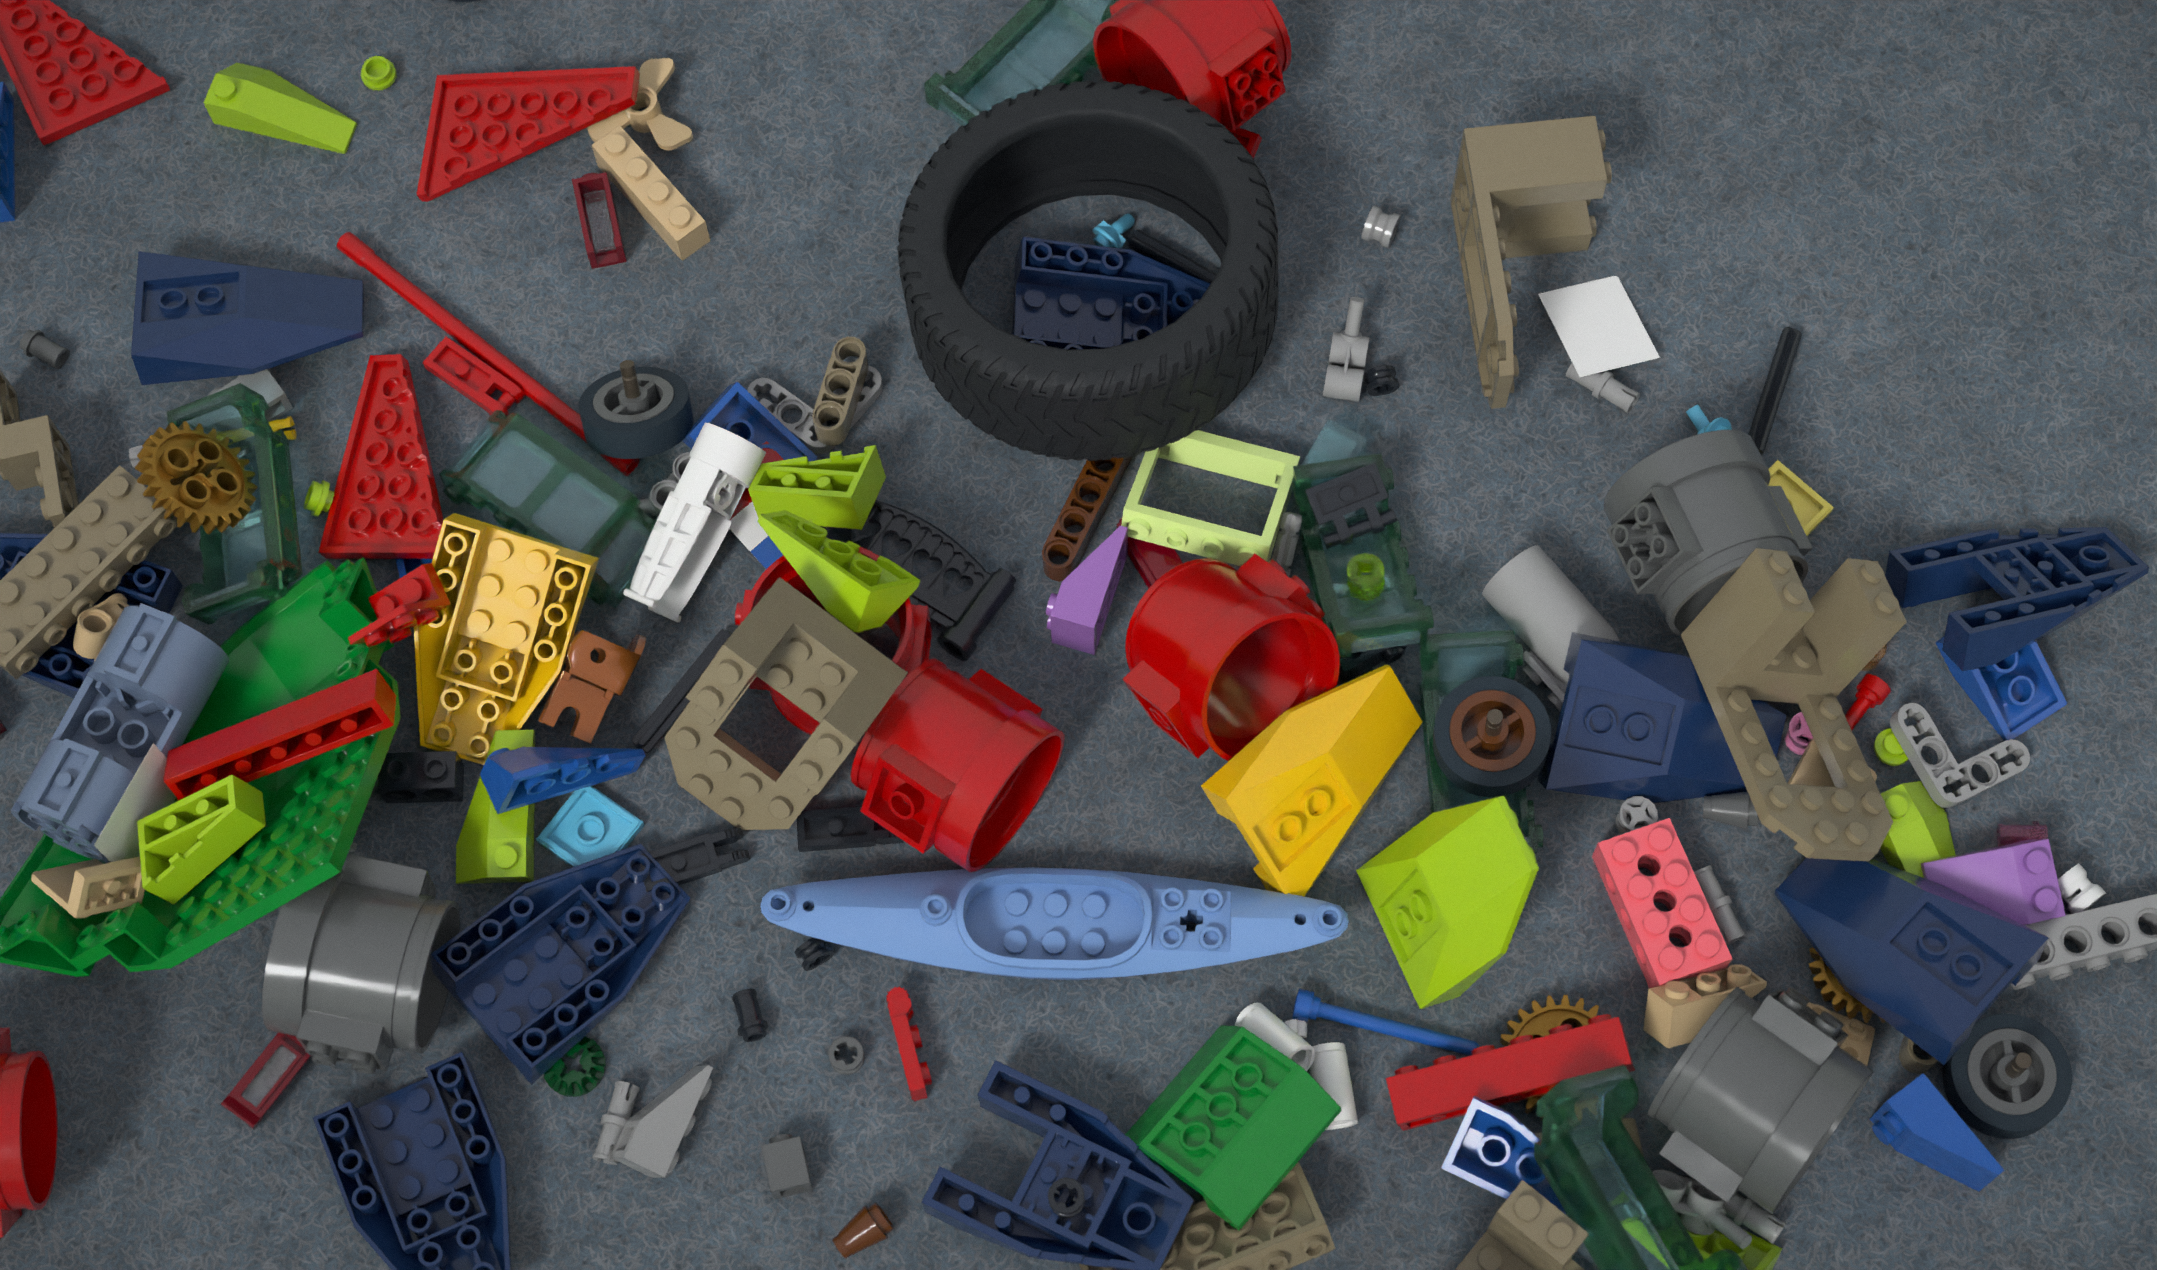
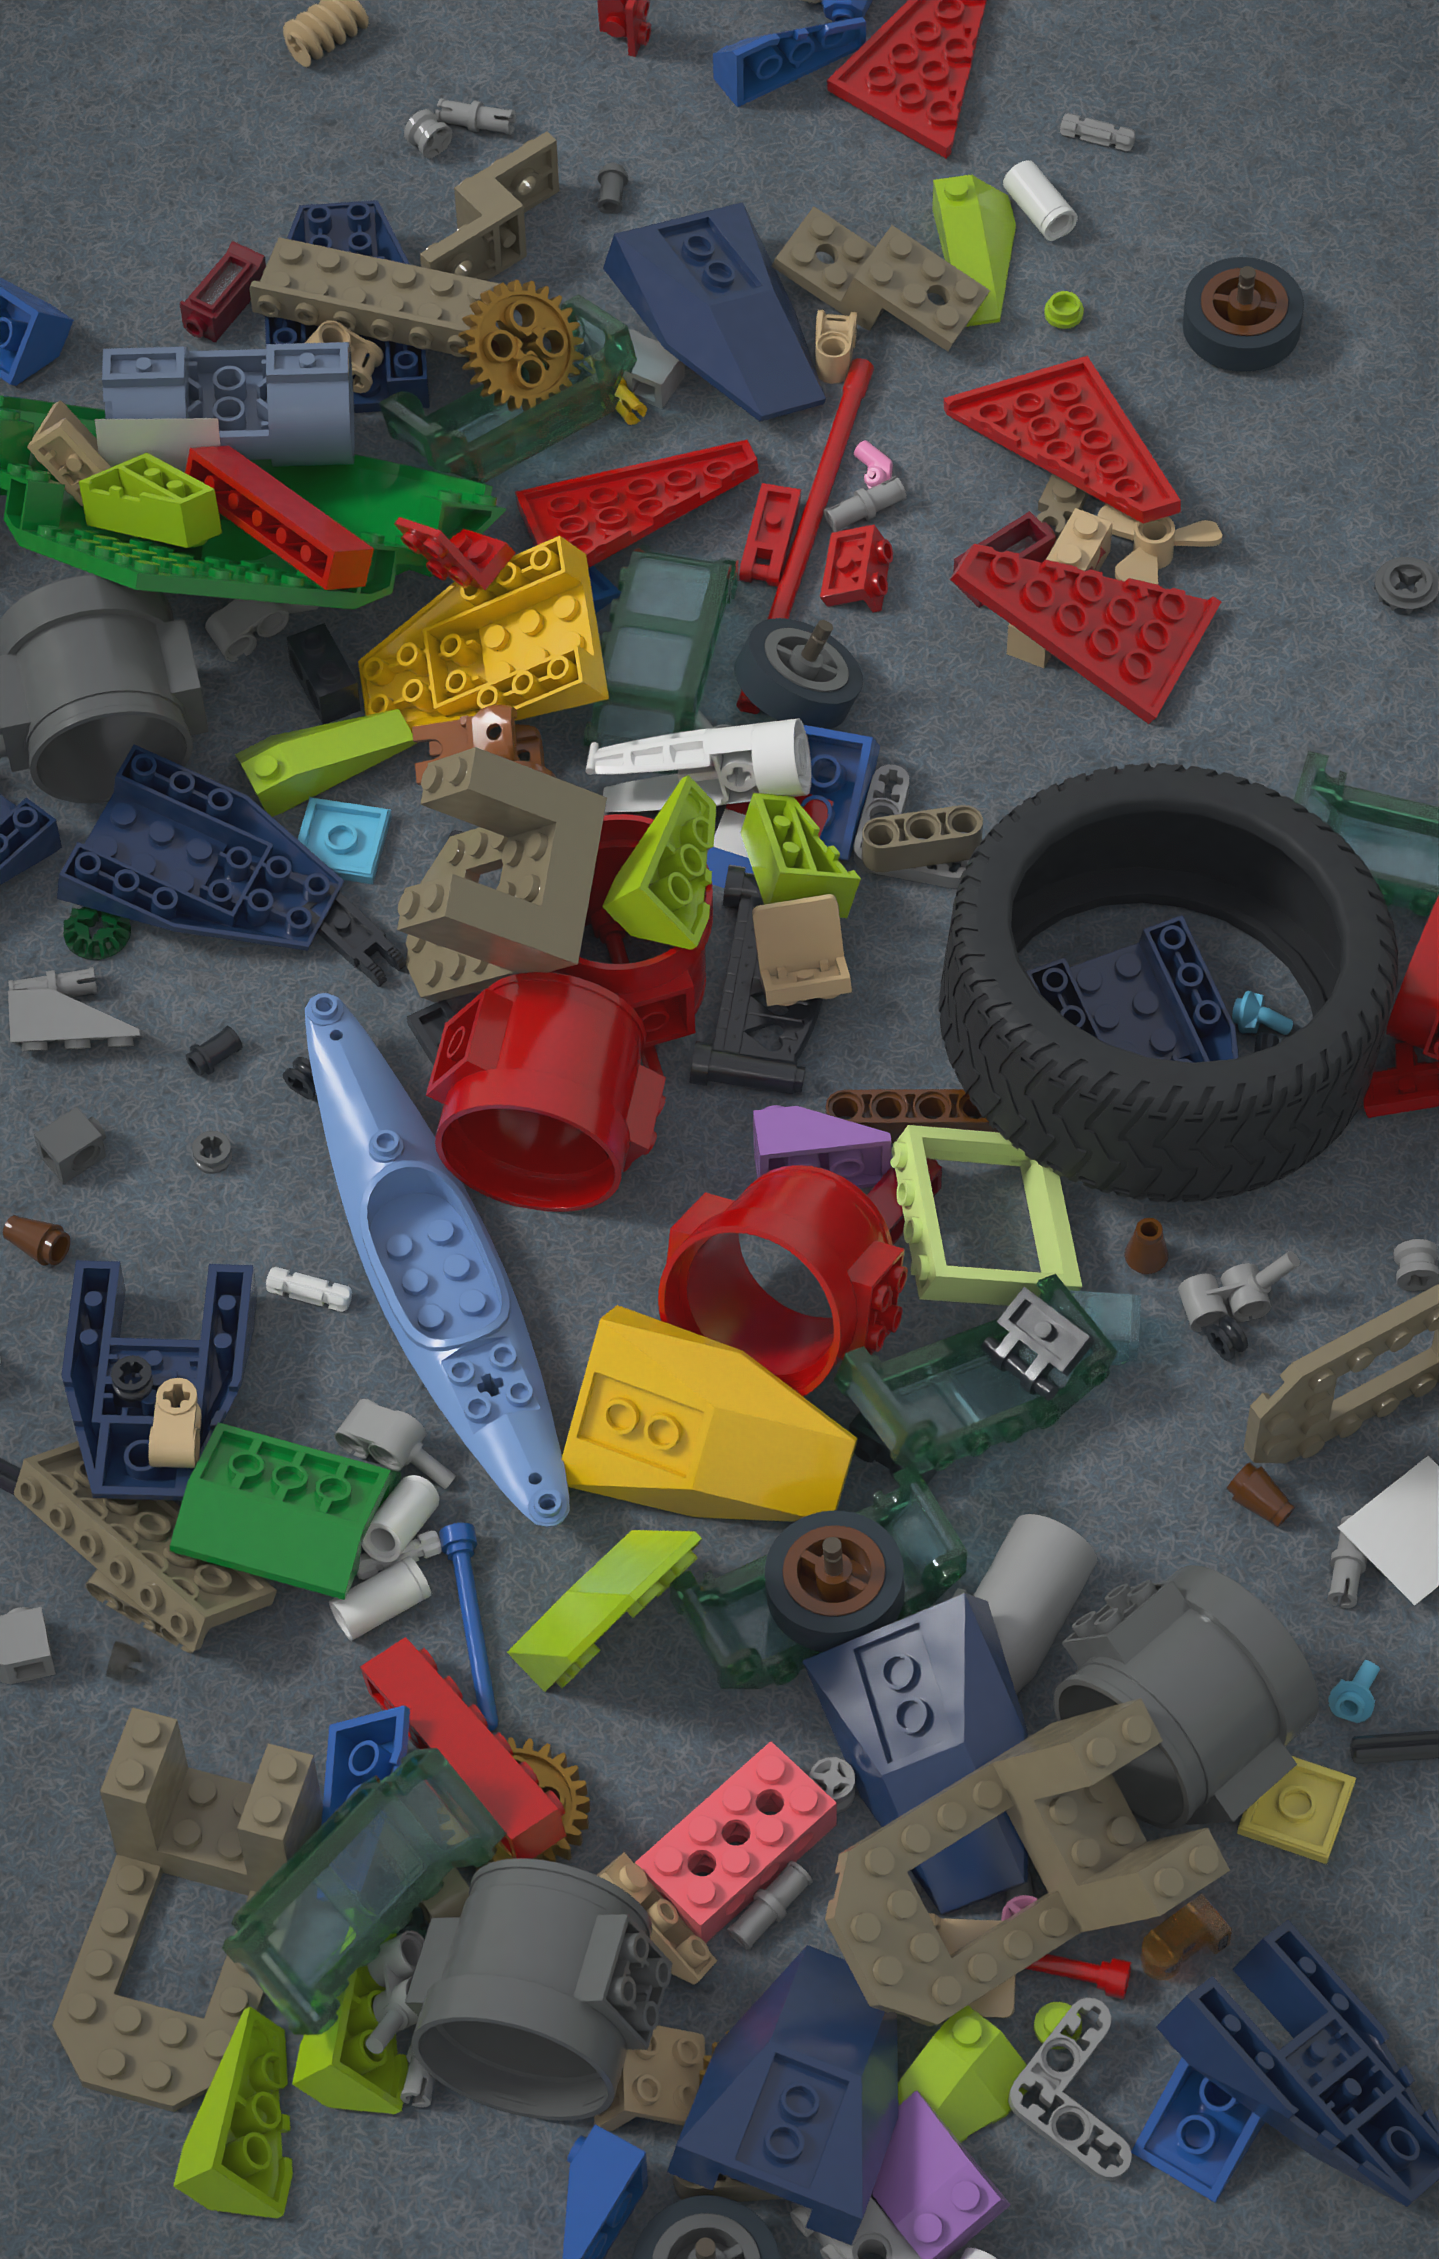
camera: 65 degrees right, 10 degrees down
(261, 40) = (1040, 200): none -> white pin
(274, 186) = (880, 278): none -> dark tan bracket
(307, 248) = (834, 345): none -> tan piece
(318, 498) = (572, 465): lime plate -> none
(451, 272) = (878, 464): none -> bright pink arm
(484, 297) = (865, 504): none -> light grey pin
(542, 773) = (361, 753): blue wedge -> none
(543, 330) = (857, 567): none -> red bracket
(563, 158) = (1059, 502): none -> dark tan plate
(712, 177) = (1113, 632): none -> red wing
(908, 1040) = (245, 1195): red hinge -> none
(911, 524) = (800, 950): none -> tan bracket
(1015, 1029) = (308, 1289): none -> white axle
(1143, 1182) = (175, 1429): none -> tan piece
(1192, 1018) = (391, 1439): none -> light grey beam
(1280, 399) = (1147, 1247): none -> reddish brown cone
(1287, 540) = (968, 1315): light grey axle -> none
(1365, 586) = (967, 1402): clear neon green wheel -> none
(1521, 418) = (1260, 1494): none -> reddish brown cone
(2017, 833) = (1022, 2214): clear pink pin -> none

